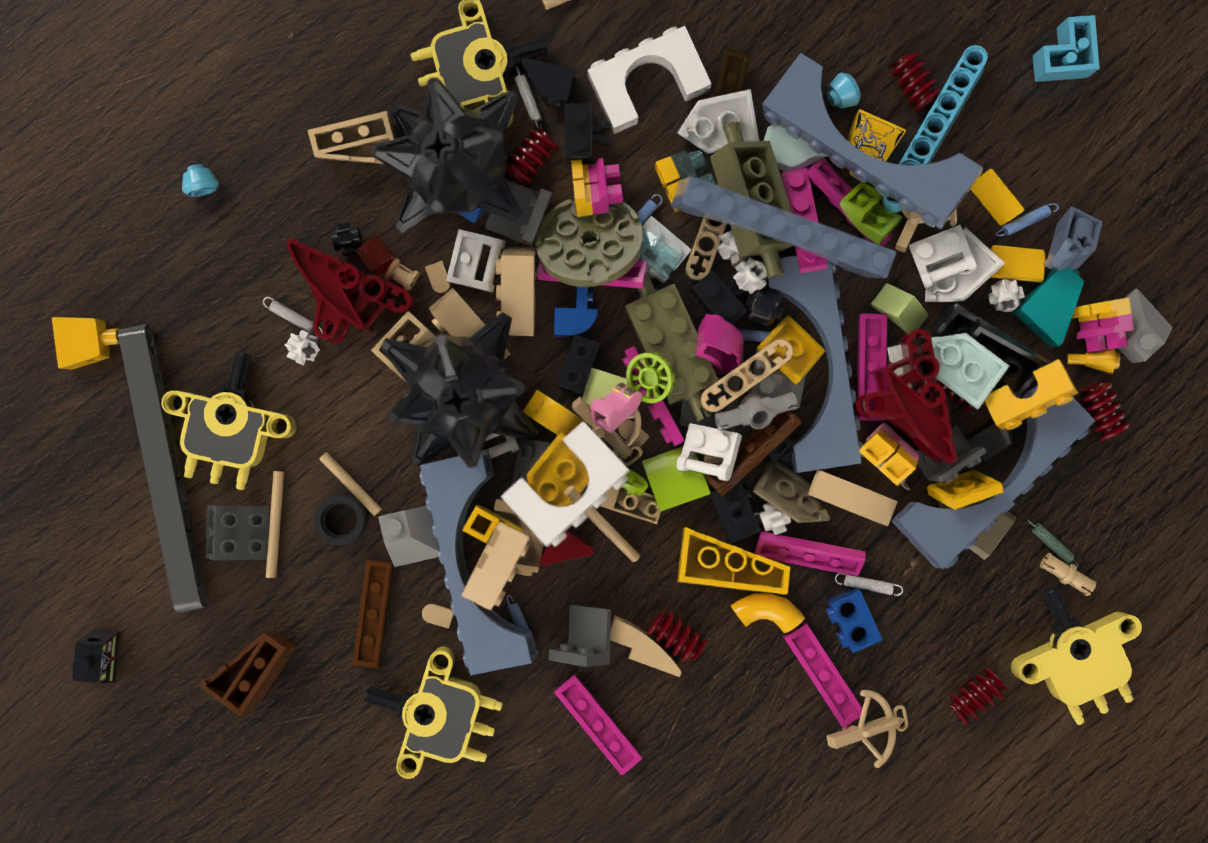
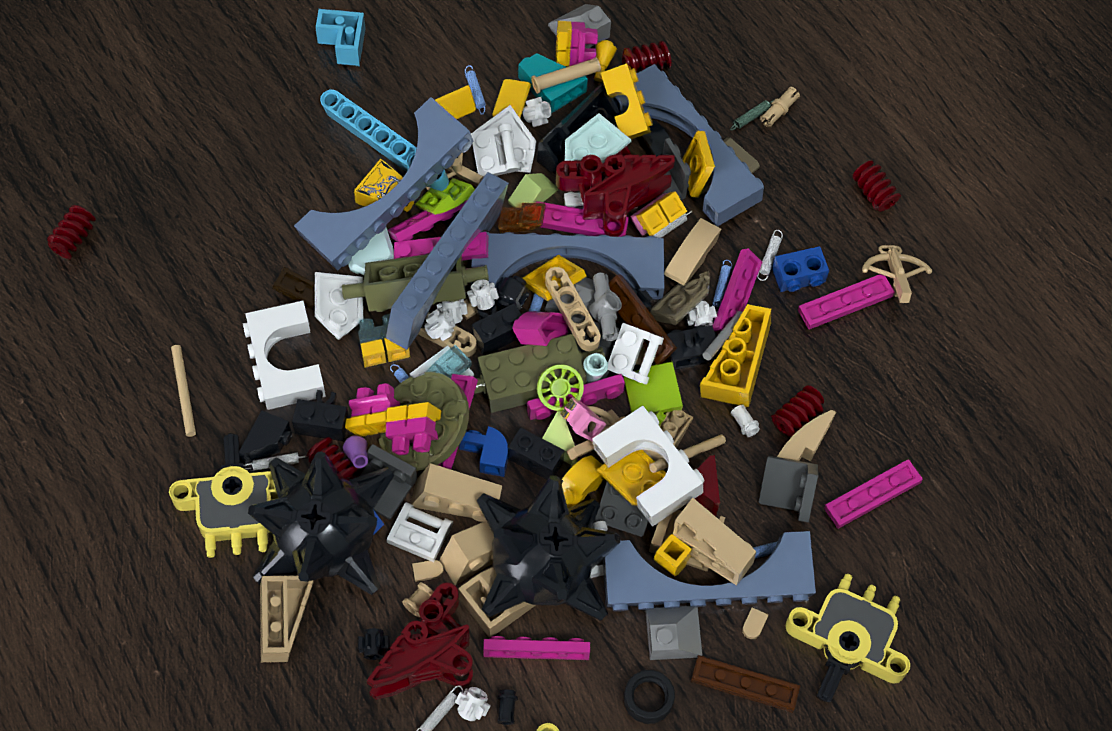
camera: 85 degrees left, 25 degrees down
(308, 381) = (506, 707): none -> black pin
(350, 484) = (613, 685): tan bar -> none
(371, 410) = (527, 648): none -> dark pink plate
(376, 255) = (395, 617): clear red brick -> none
(550, 178) = (356, 450): none -> medium lavender cone
(576, 229) = (412, 425): none -> dark pink hips
(659, 580) = (746, 422): none -> white pin
(690, 411) = (595, 367): none -> light aqua cone
(706, 236) = (439, 325): none -> white gear
(748, 545) = (721, 338): none -> light grey bar
(768, 607) = (780, 336): yellow cylinder -> none
(820, 535) = (722, 284): none -> light blue piece
(843, 91) = (333, 201): medium azure cone -> none
(862, 302) = (522, 219): none -> clear orange slope
(915, 81) = (338, 147): dark red piece -> none
(1057, 320) = (565, 74): none -> tan pin
(1073, 240) = (500, 55): sand blue piece -> none
(1090, 671) = (851, 108): light yellow piece -> none

